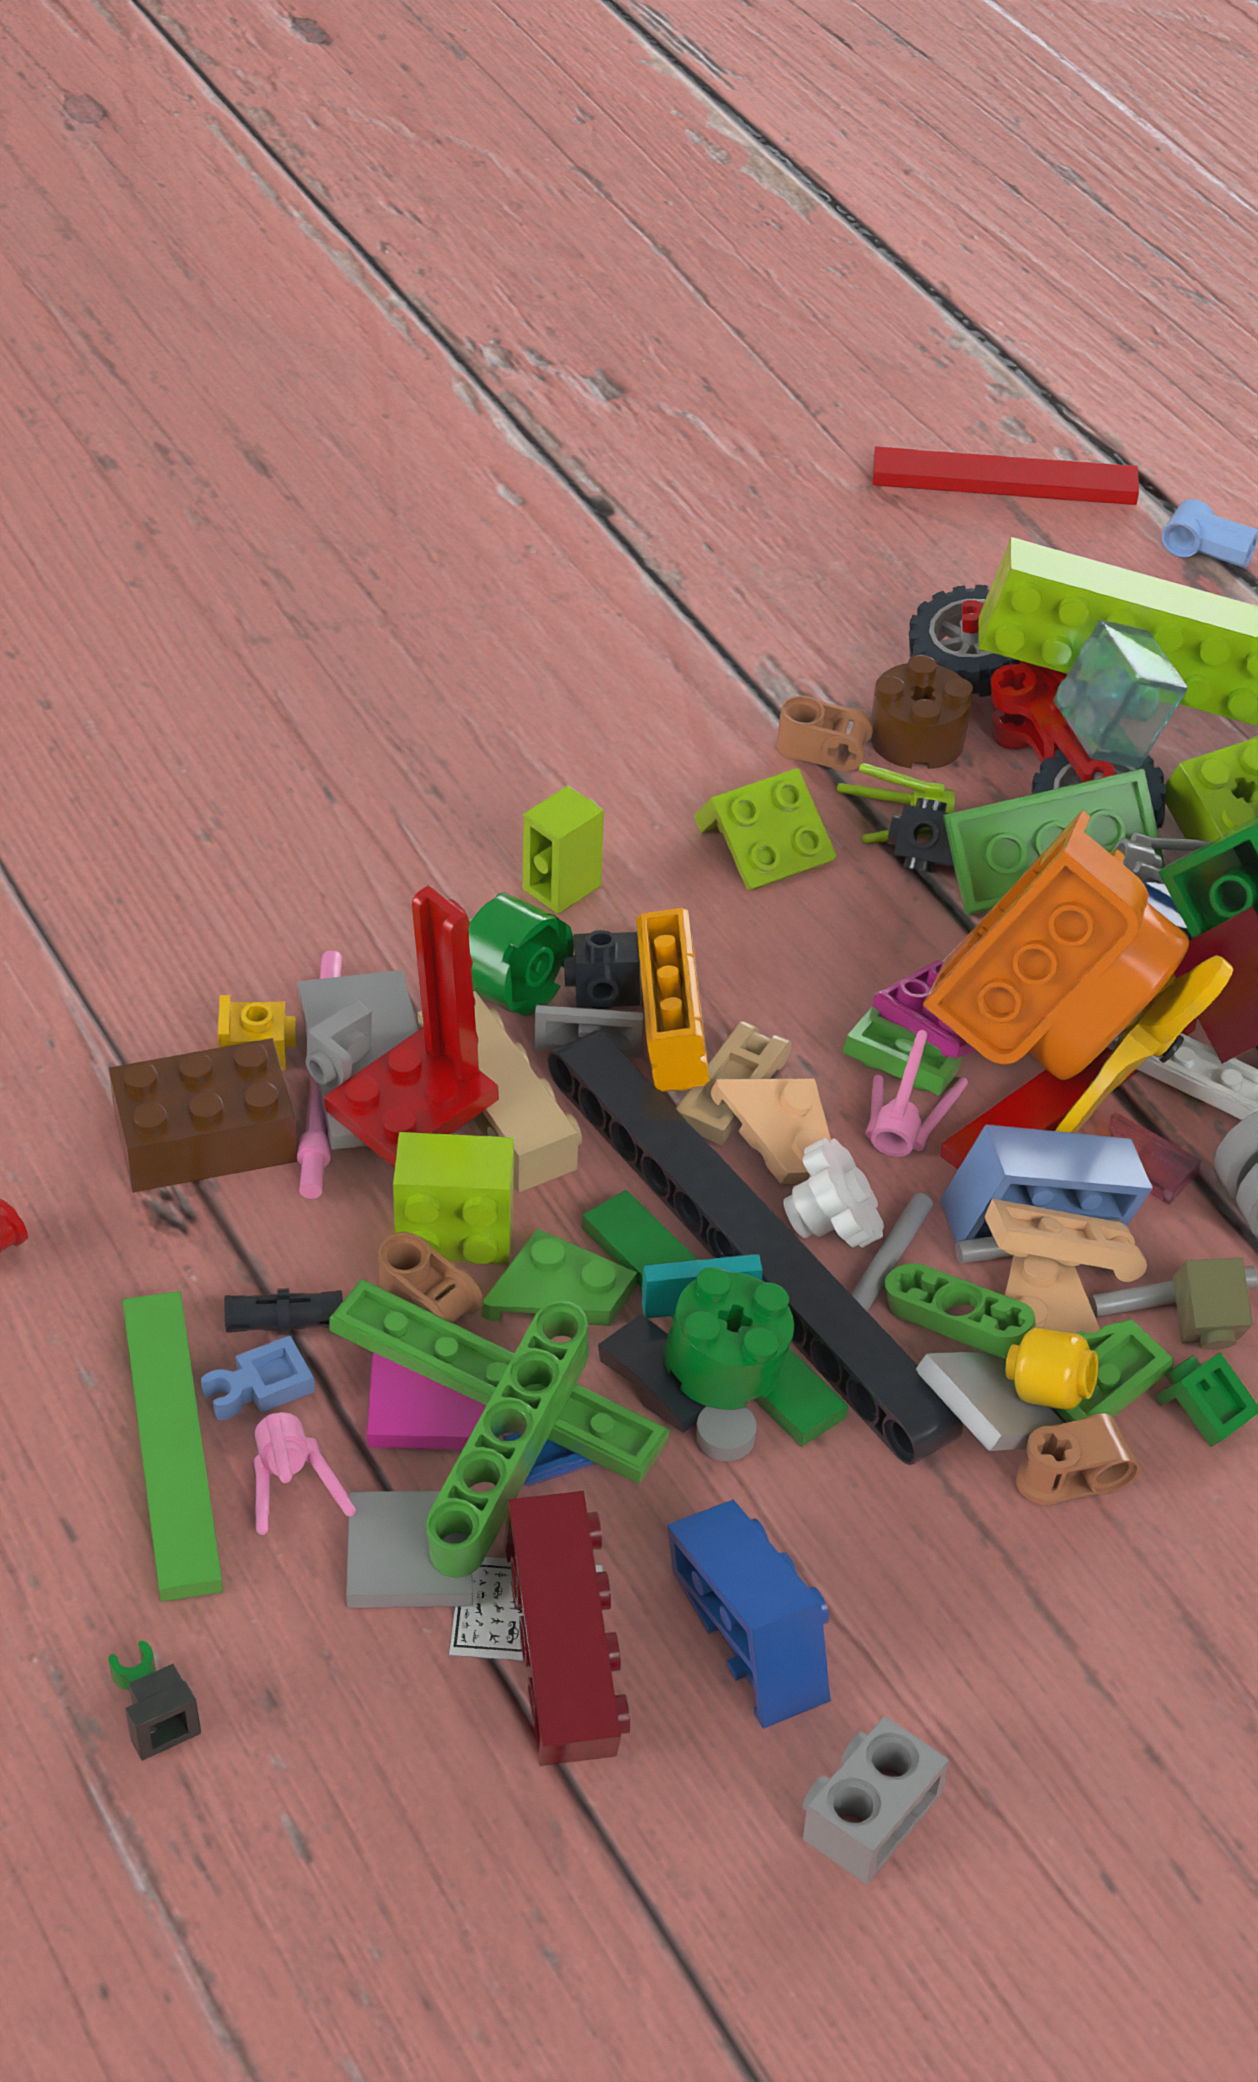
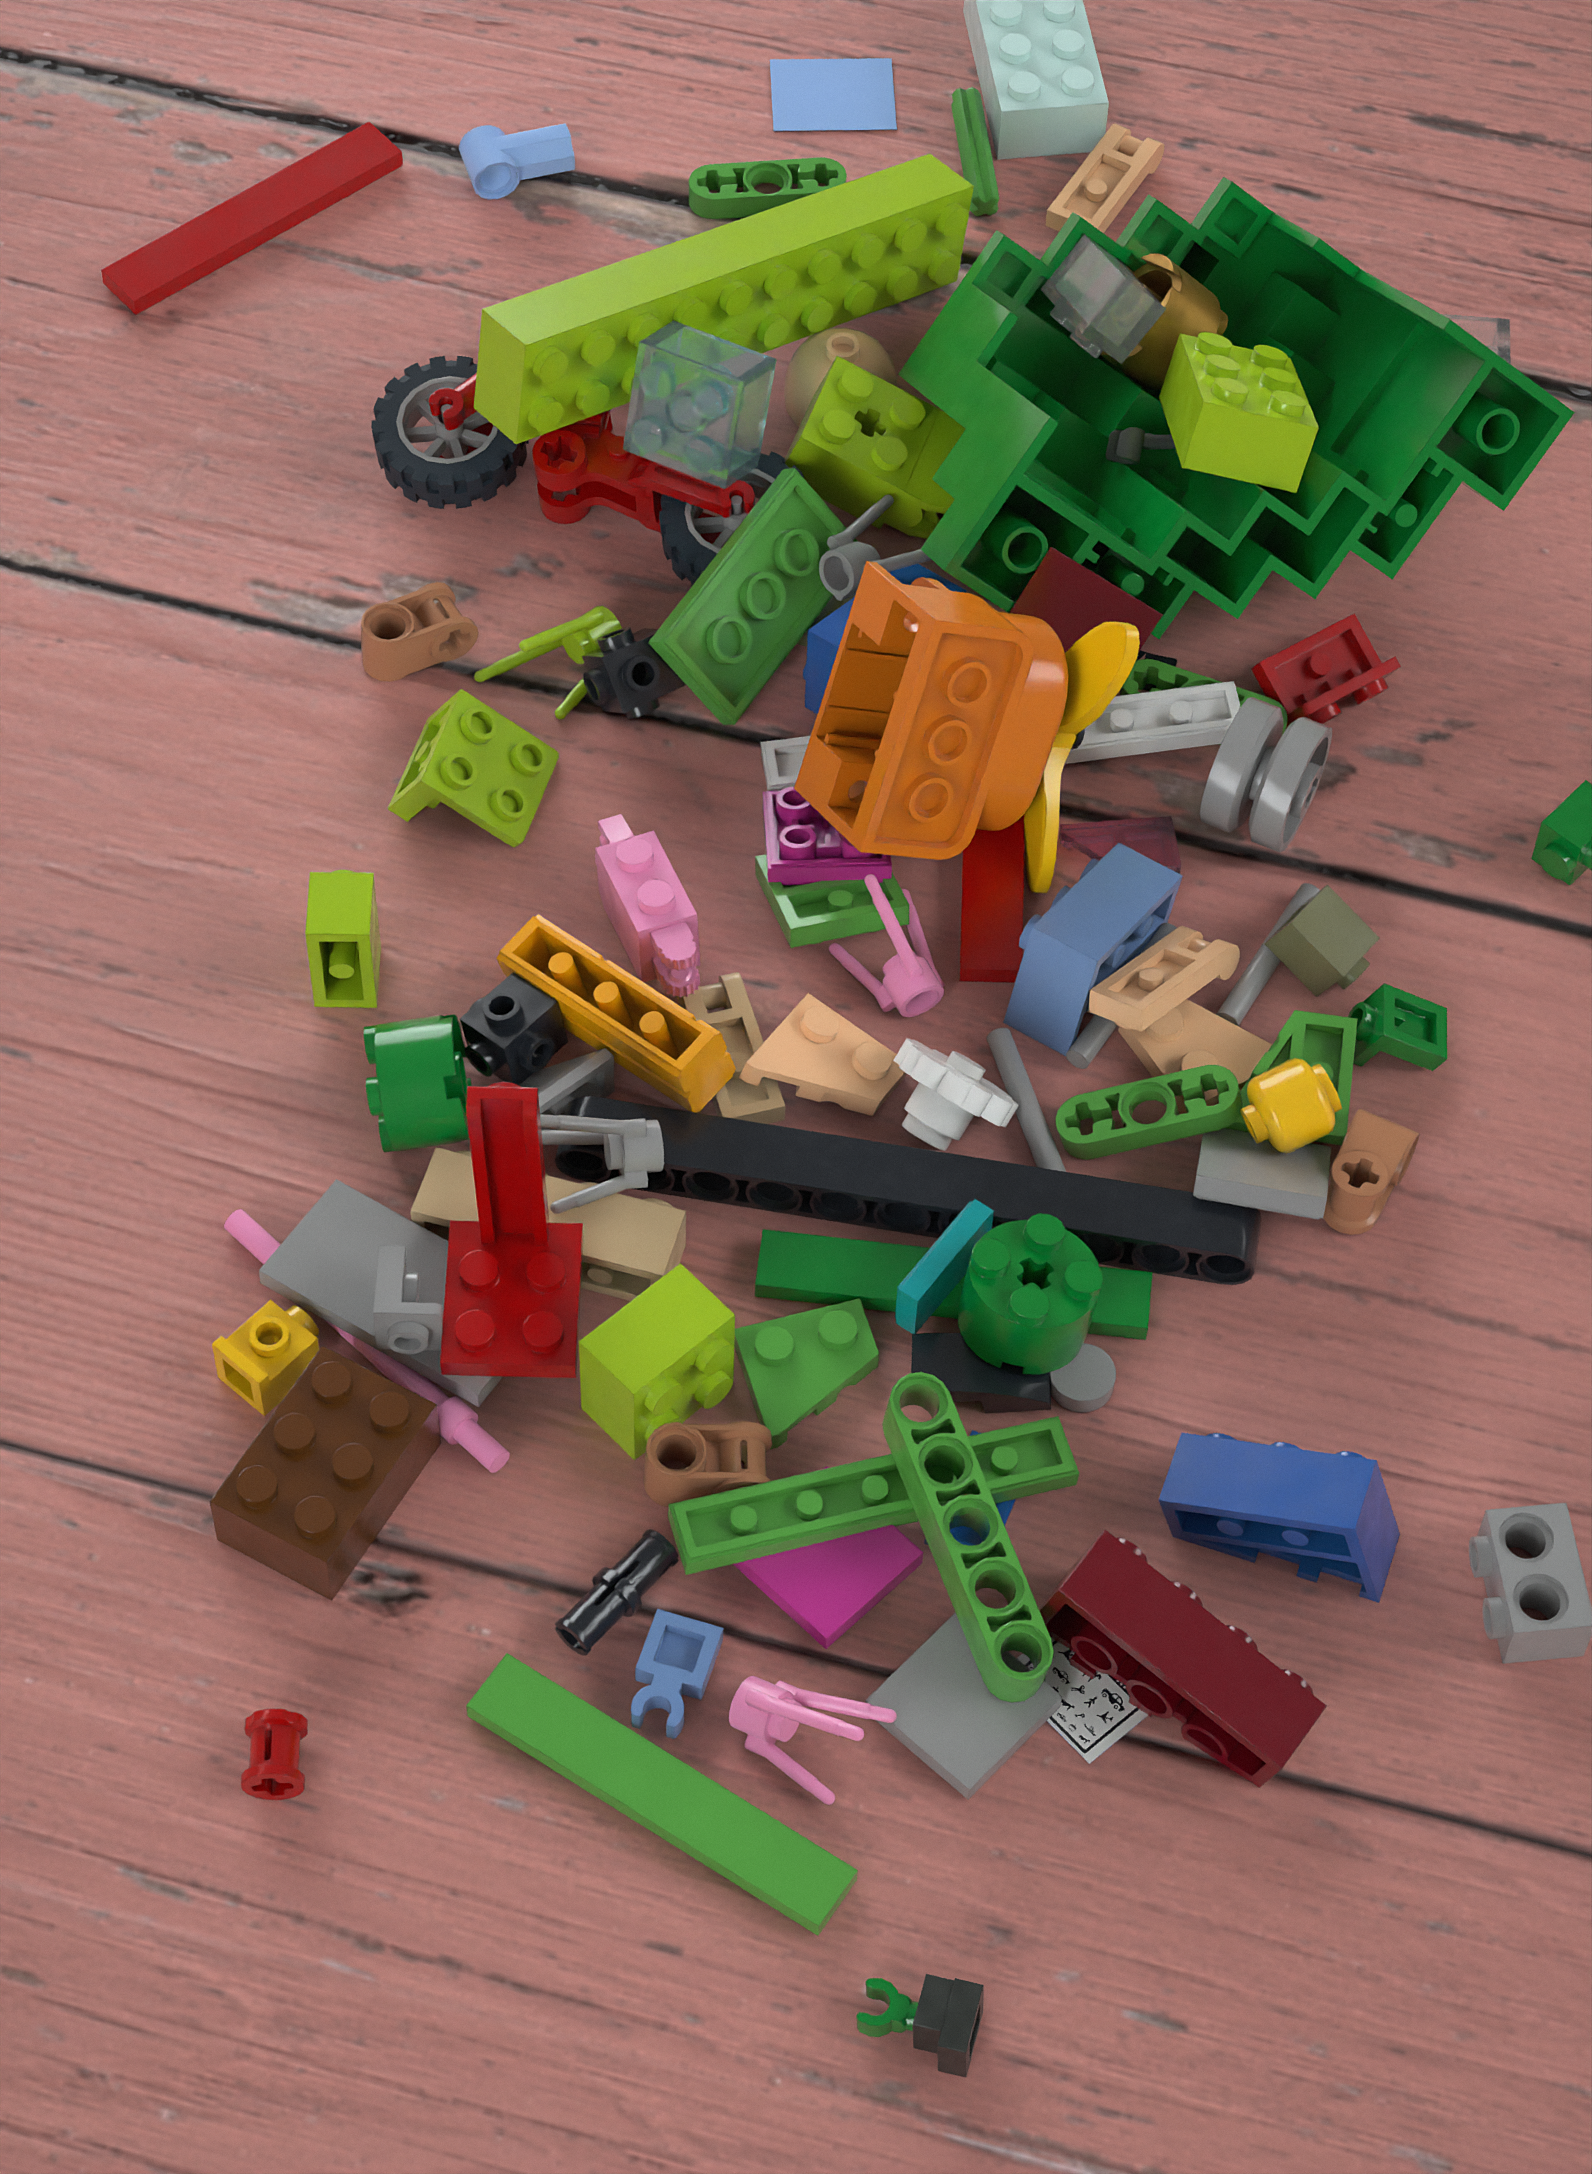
camera: 45 degrees left, 10 degrees up
(579, 1066) = (629, 1145): none -> light grey plant
(774, 964) = (648, 907): none -> bright pink hinge
(920, 713) = (483, 544): reddish brown brick -> none

